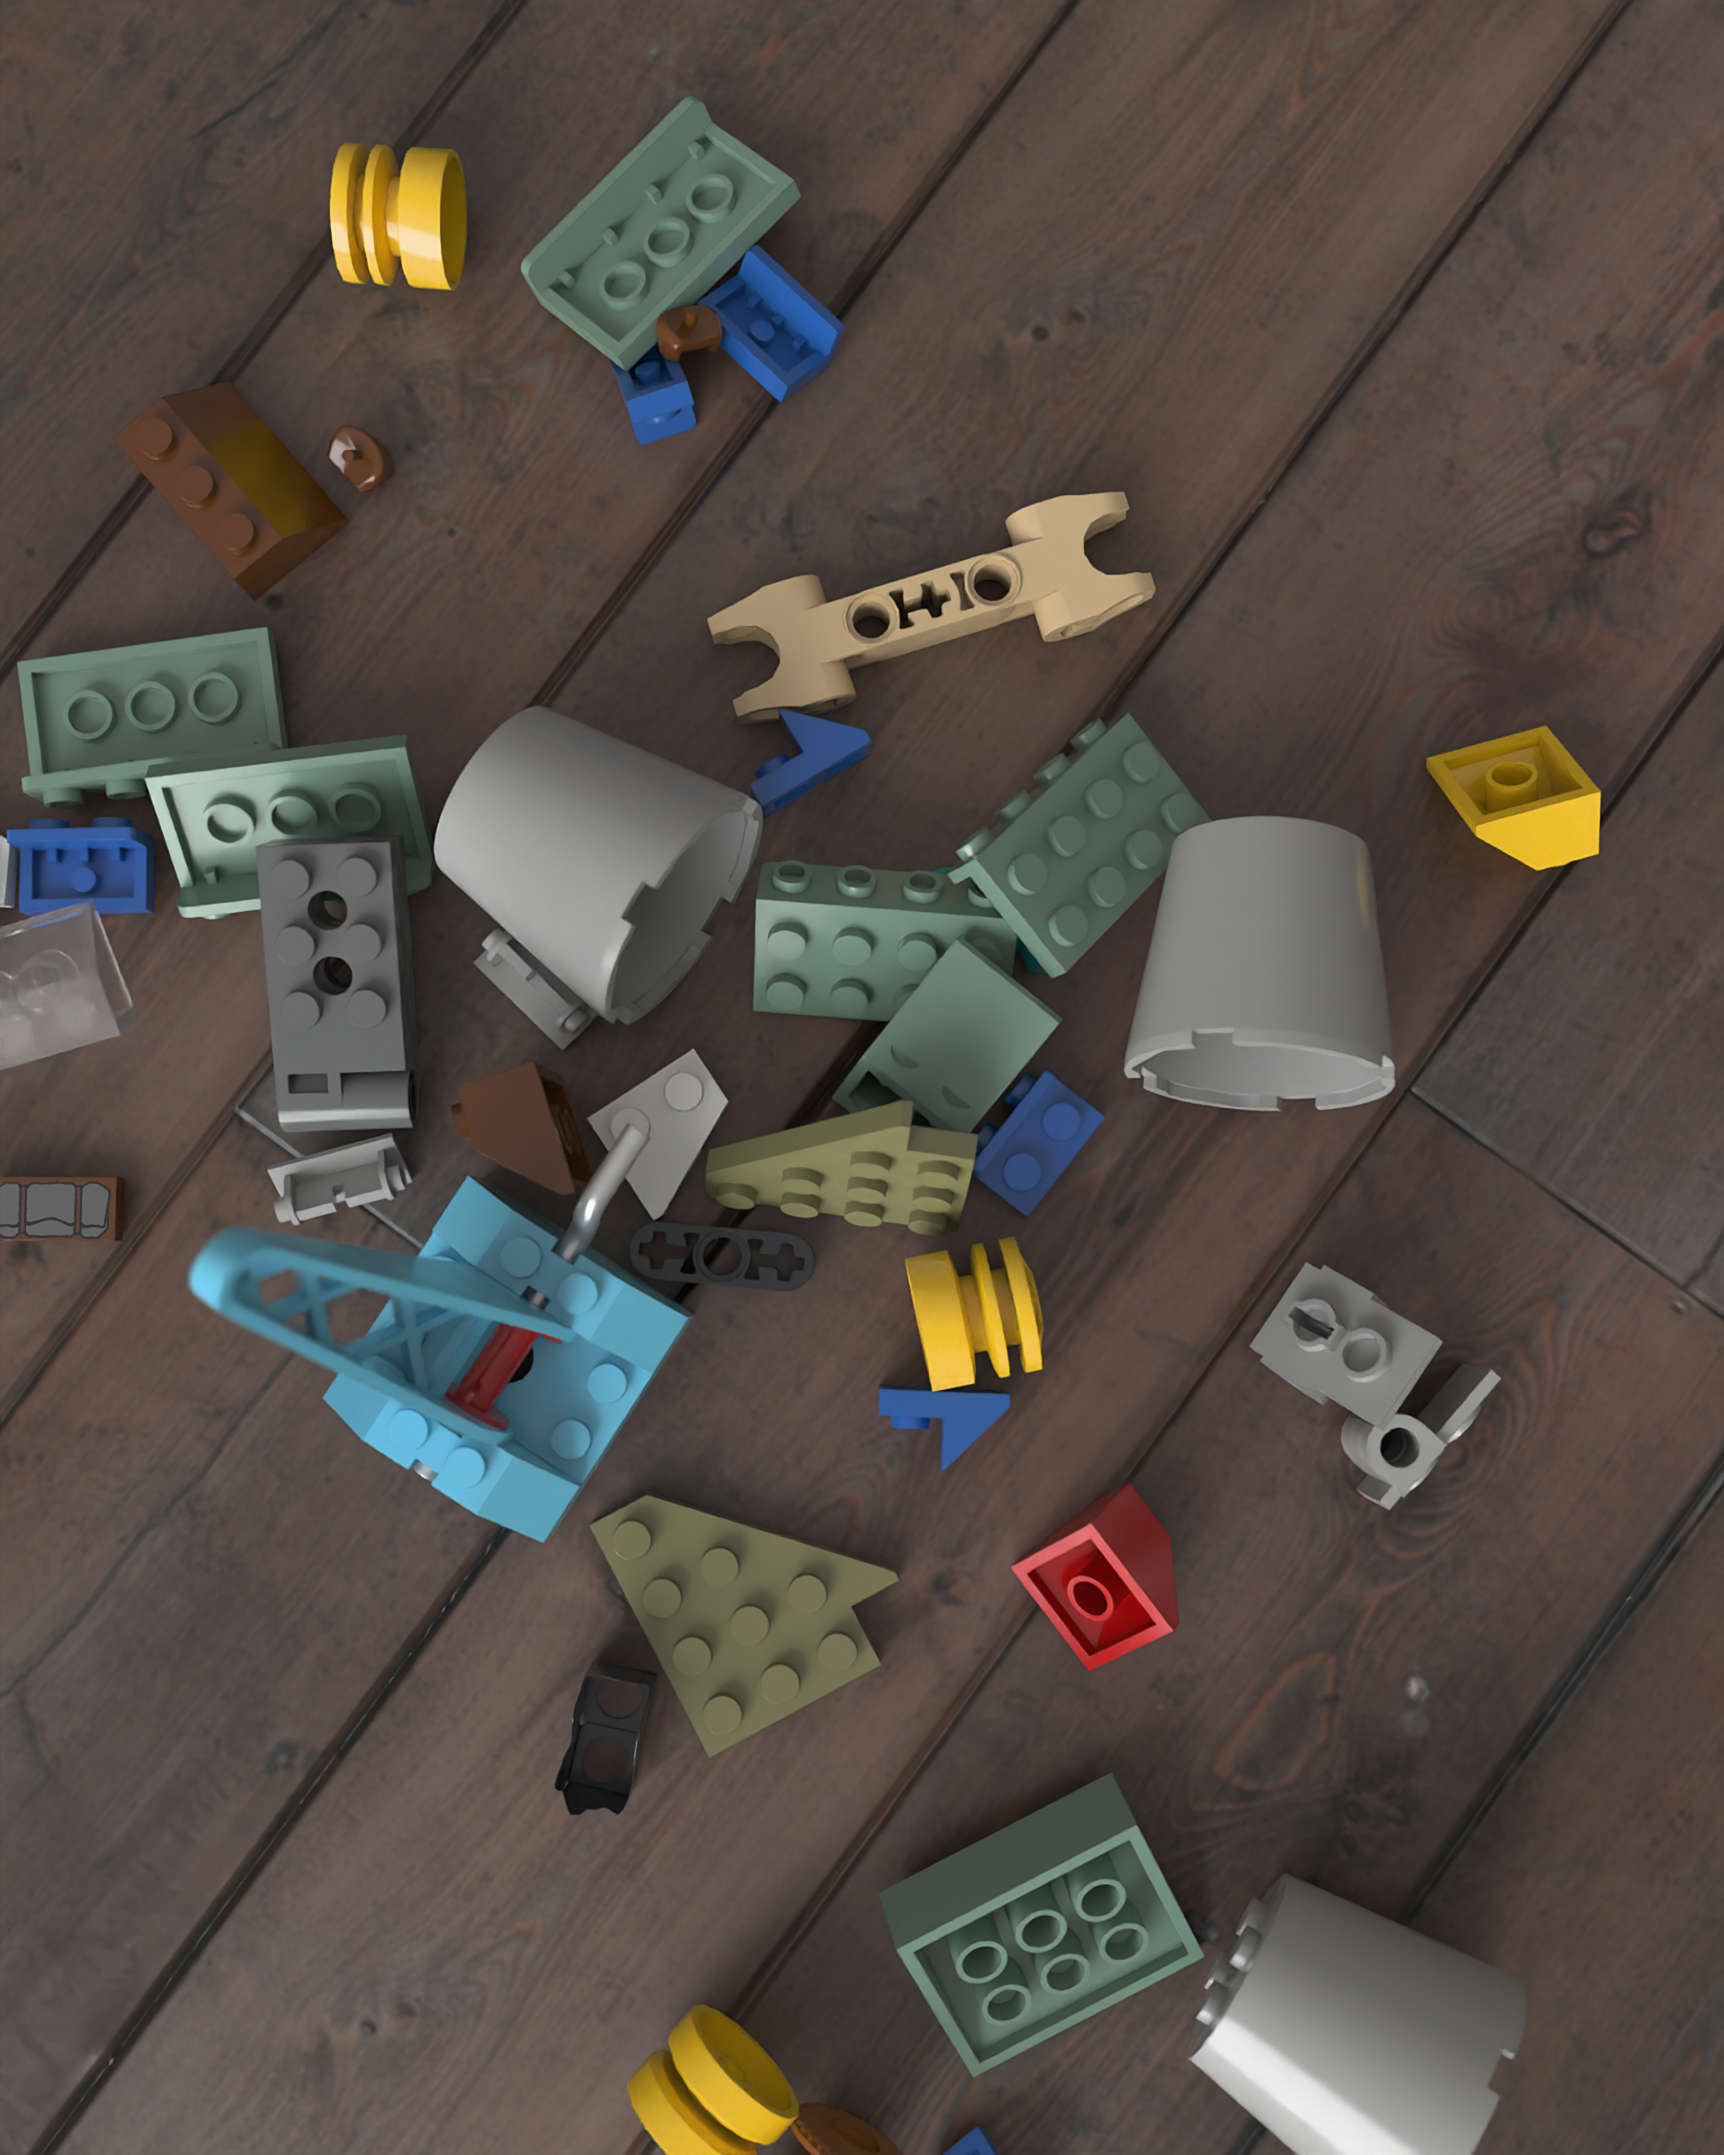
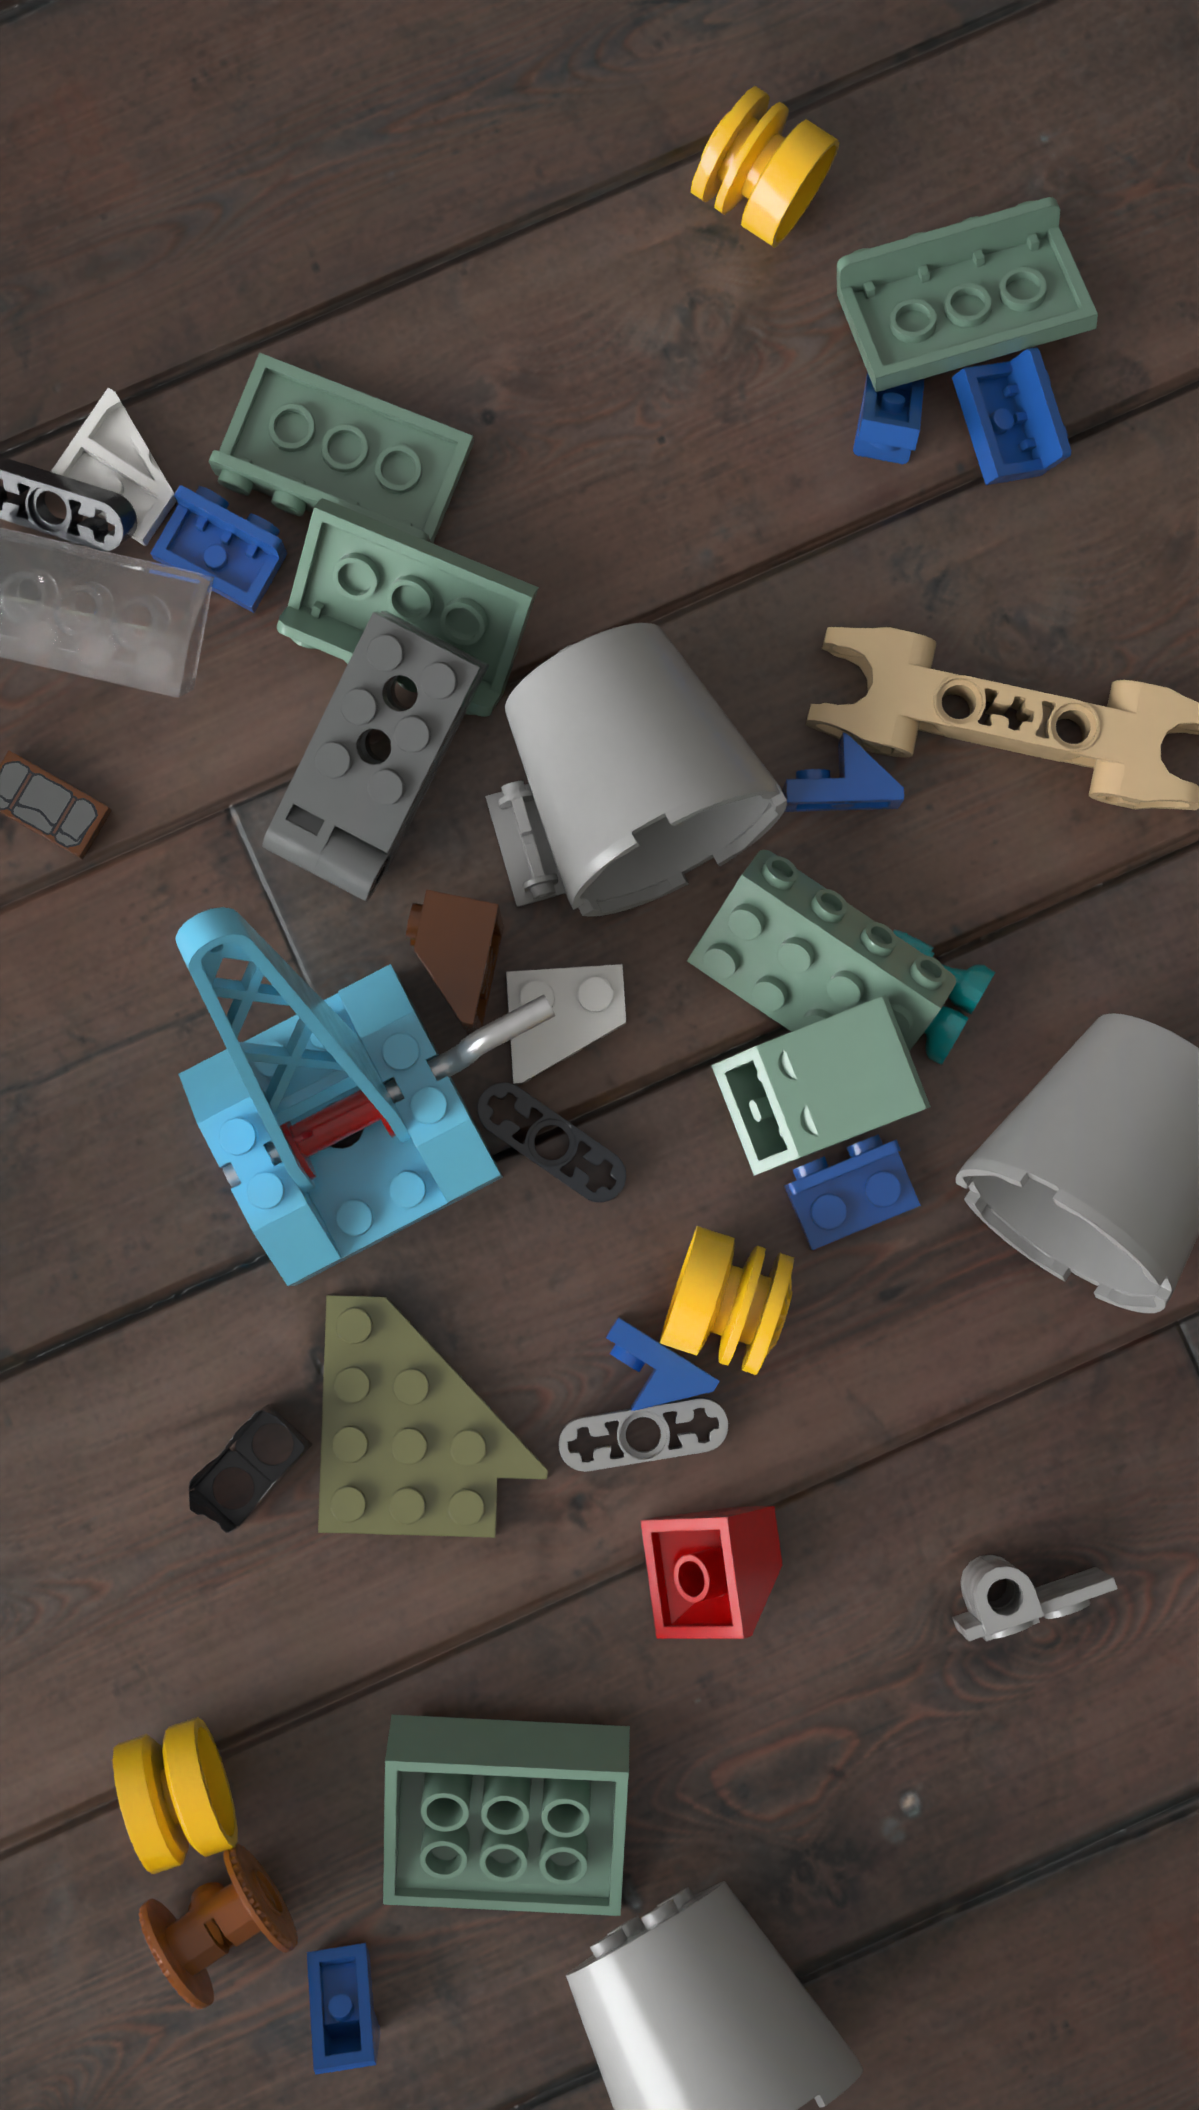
camera: 25 degrees right, 0 degrees up
(232, 483) = (509, 304): reddish brown slope -> none
(350, 1172) = (295, 908): light grey hinge -> none
(360, 457) = (622, 339): reddish brown piece -> none
(688, 330) = (944, 387): reddish brown piece -> none
(854, 1167) = (697, 1129): olive wing -> none
(919, 1502) = (601, 1454): none -> light grey beam
(1080, 841) = (1026, 974): sand green bracket -> none
(1344, 1345) = (1007, 1493): light grey piece -> none

